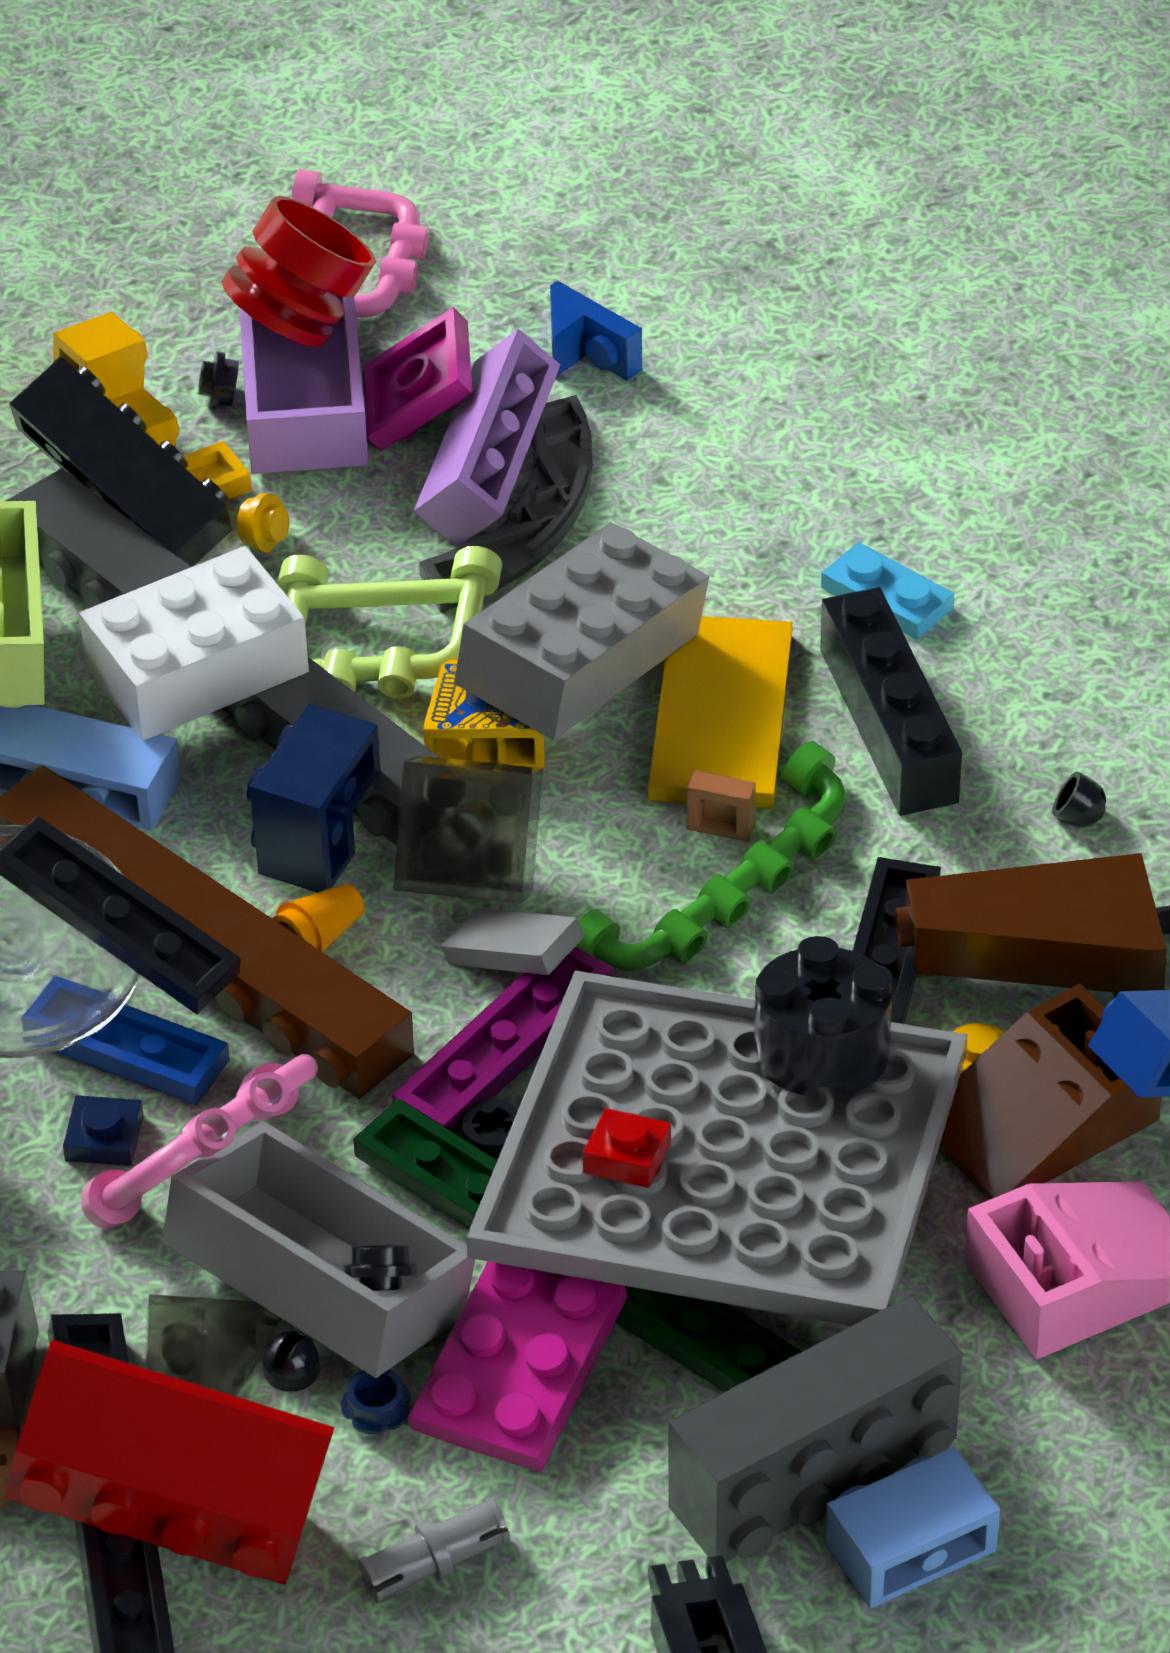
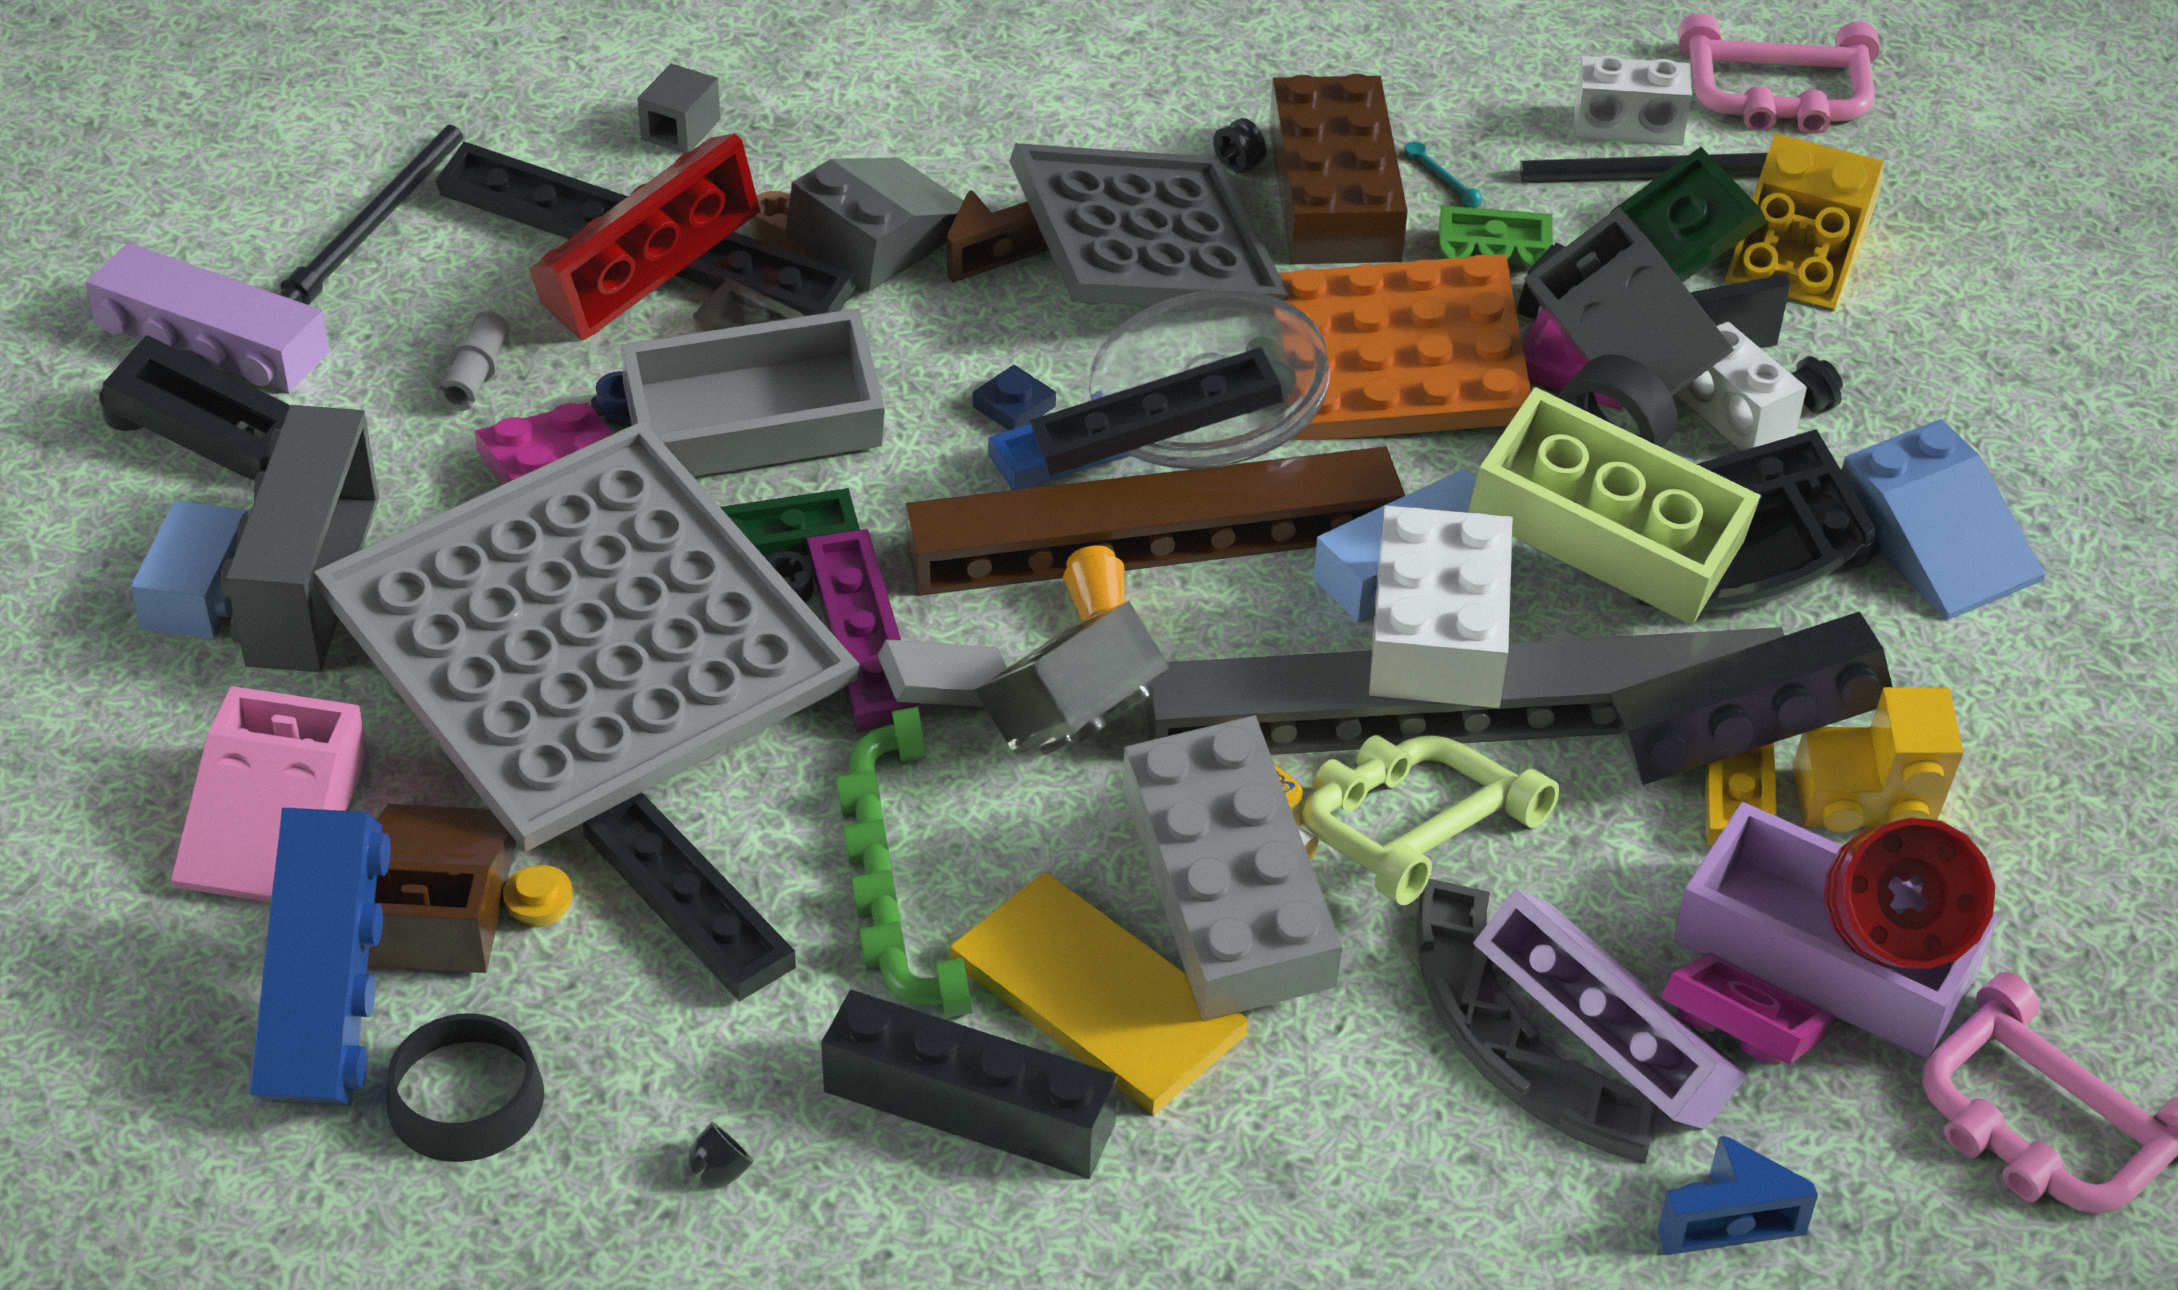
camera: 125 degrees right, 0 degrees up
(262, 522) = (1636, 810): yellow plate -> none
(263, 1096) = (935, 367): bright pink bar -> none
(308, 796) = (1203, 602): dark blue brick -> none
(380, 1266) = (685, 371): black plate -> none
(626, 1148) = (622, 541): red plate -> none
(721, 805) = (965, 892): nougat plate -> none
(822, 1018) = (605, 707): black brick -> none
(913, 598) = (1137, 1217): medium azure plate -> none
(1039, 925) = (568, 959): reddish brown slope -> none

